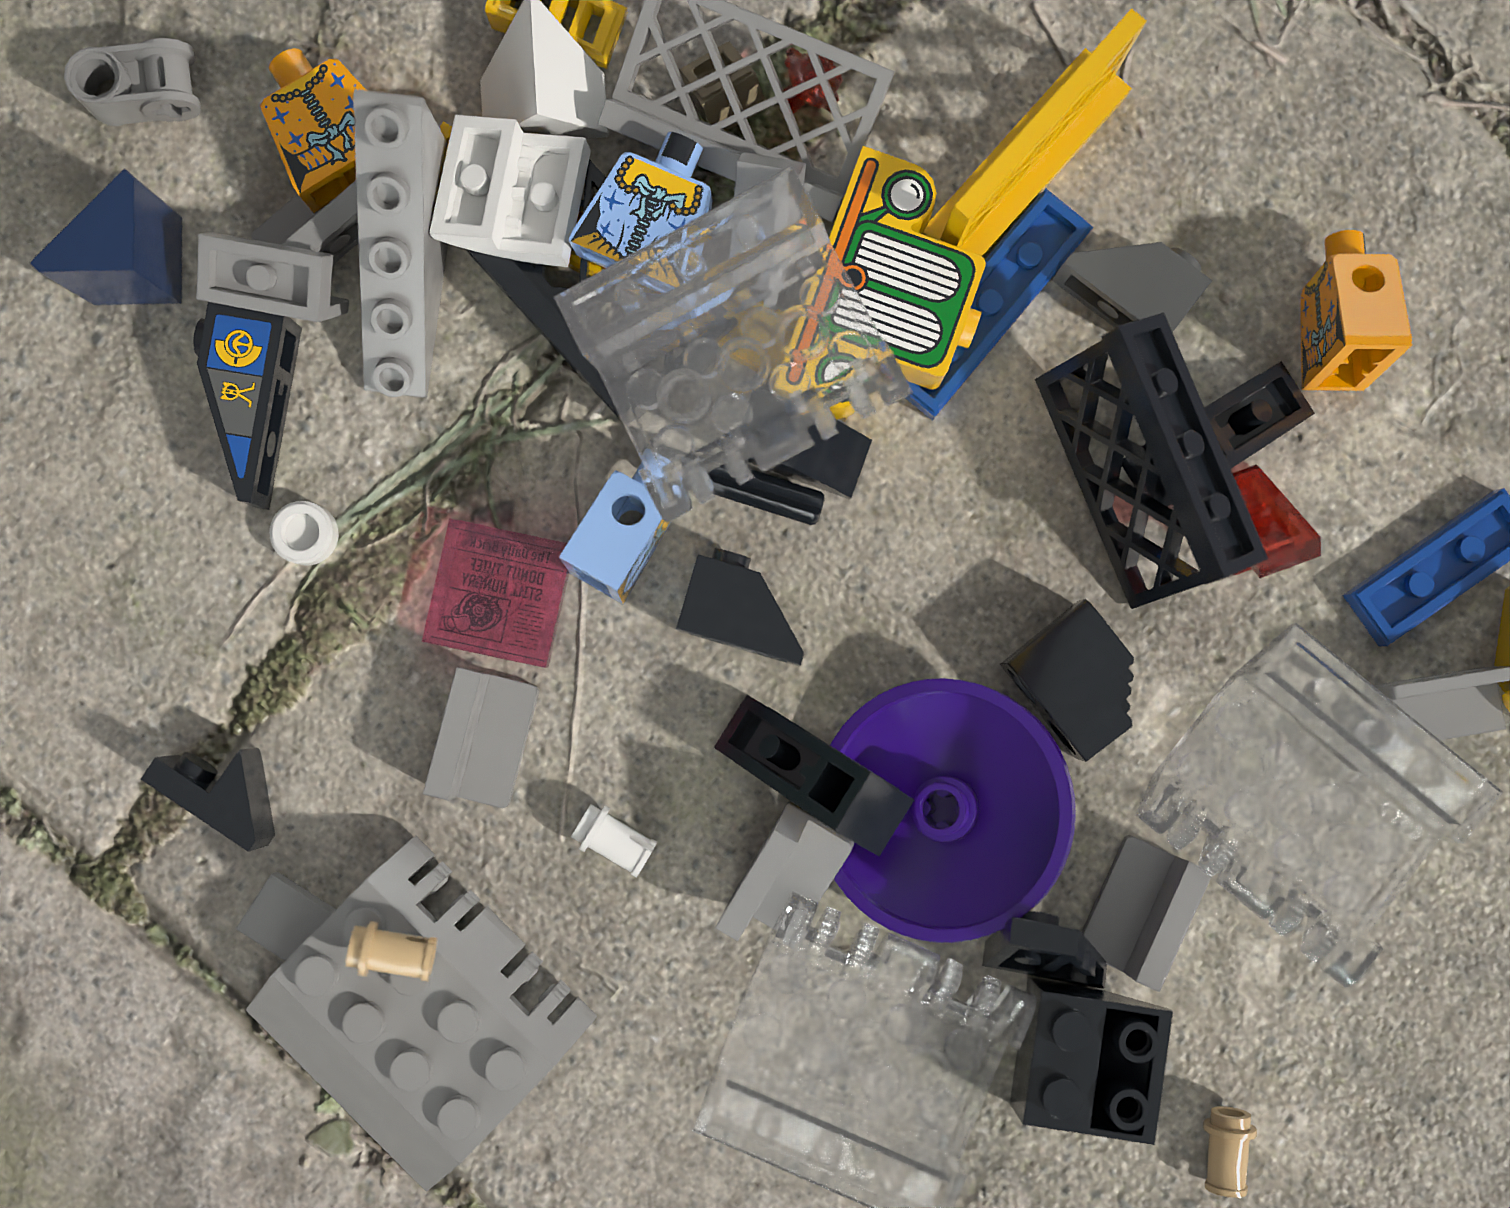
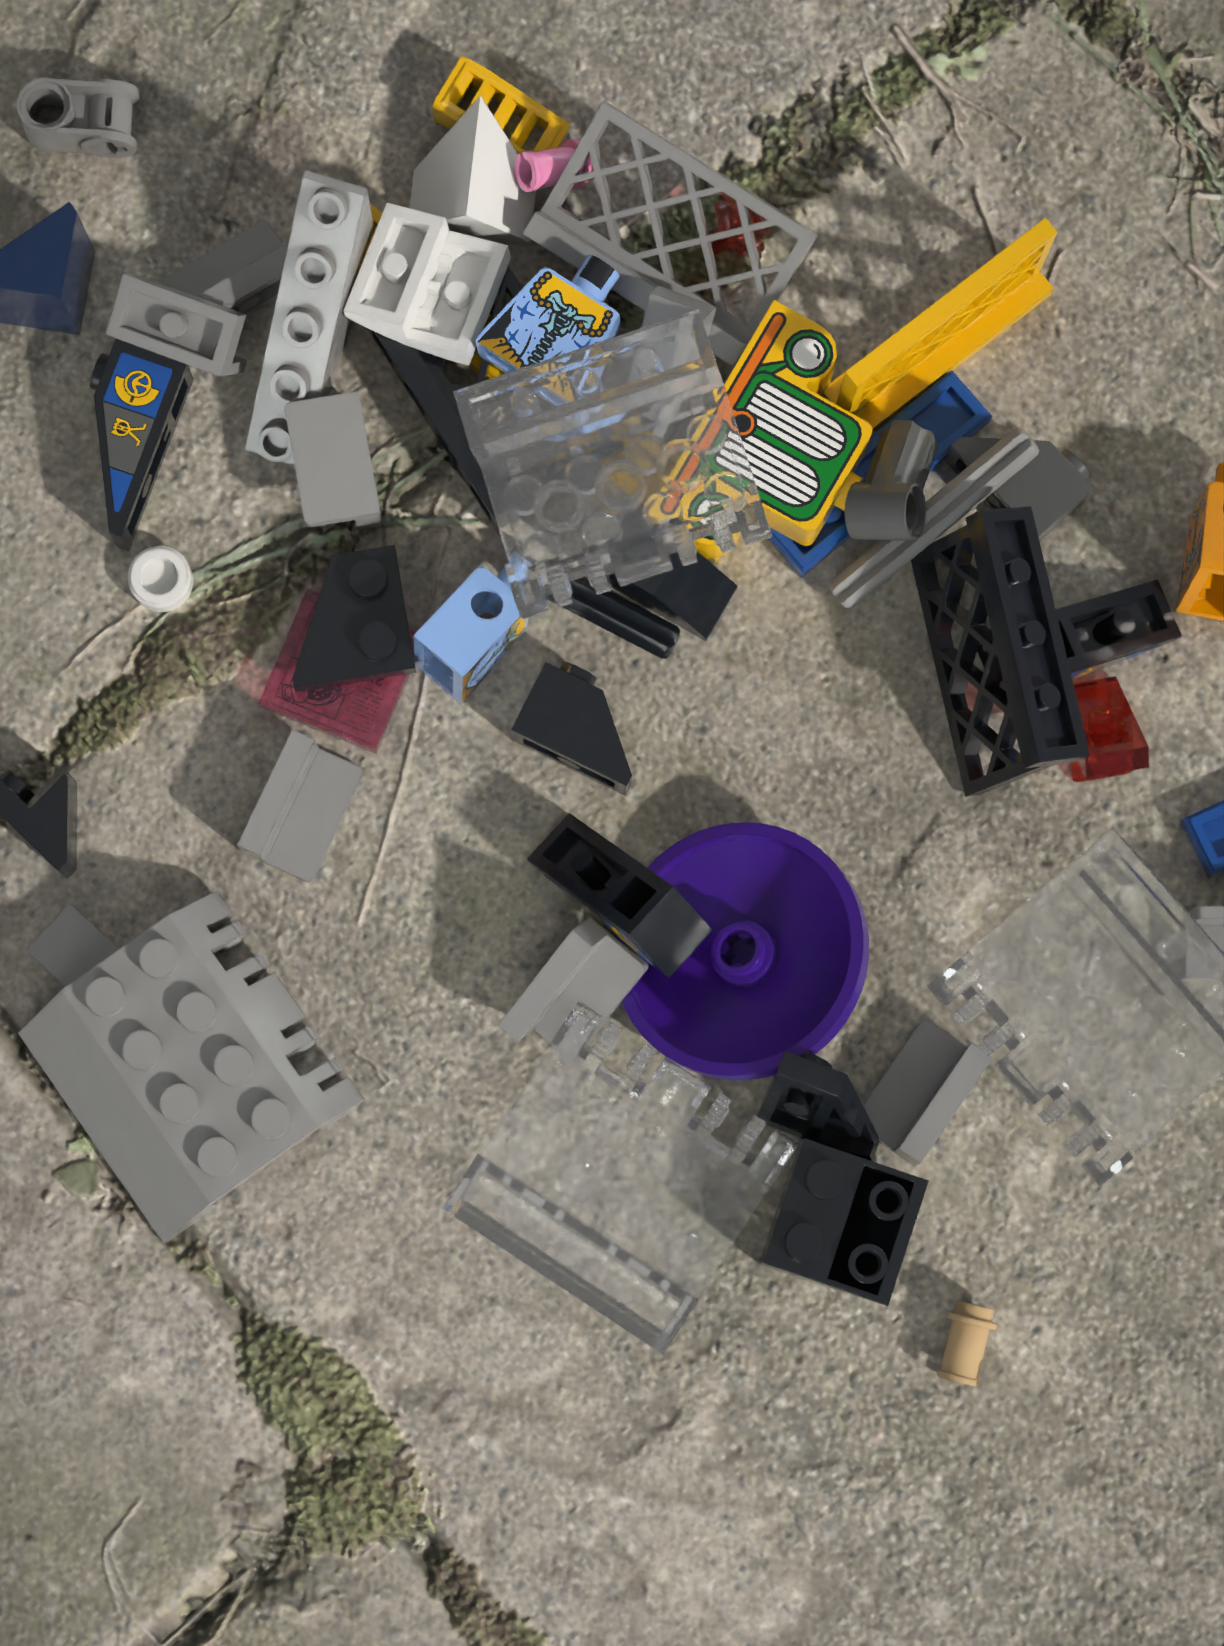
camera: 10 degrees right, 5 degrees down
(313, 125) = (251, 188): light orange torso -> none
(390, 952) = (185, 981): tan pin -> none
(449, 387) = (333, 461): none -> light grey panel
(504, 545) = (357, 624): none -> black wing
(607, 53) = (545, 167): none -> bright pink pin
(613, 840) = (411, 929): white pin -> none
(711, 99) = (638, 228): dark tan slope -> none
(1015, 325) = (892, 497): none -> dark grey piece
(1060, 338) = (942, 512): none -> light grey axle
(1077, 679) = (896, 851): black piece -> none

